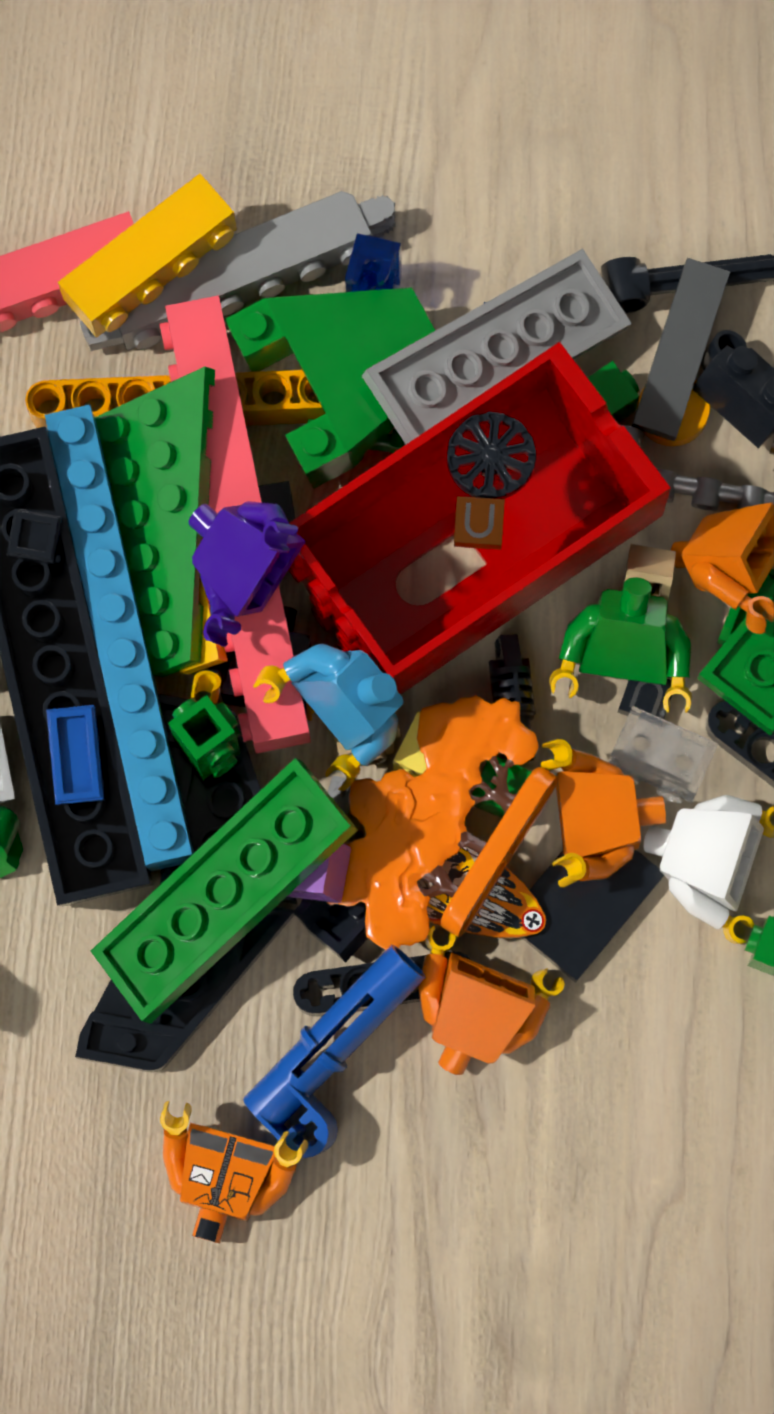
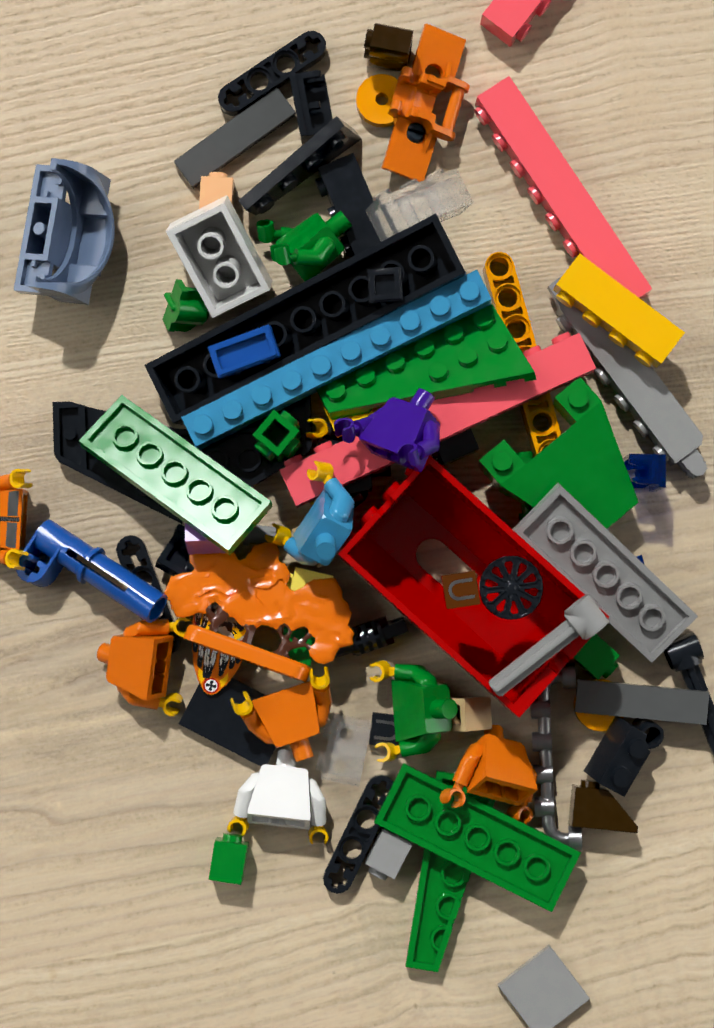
camera: 75 degrees right, 10 degrees up
(556, 373) = (582, 620): none -> light grey axle

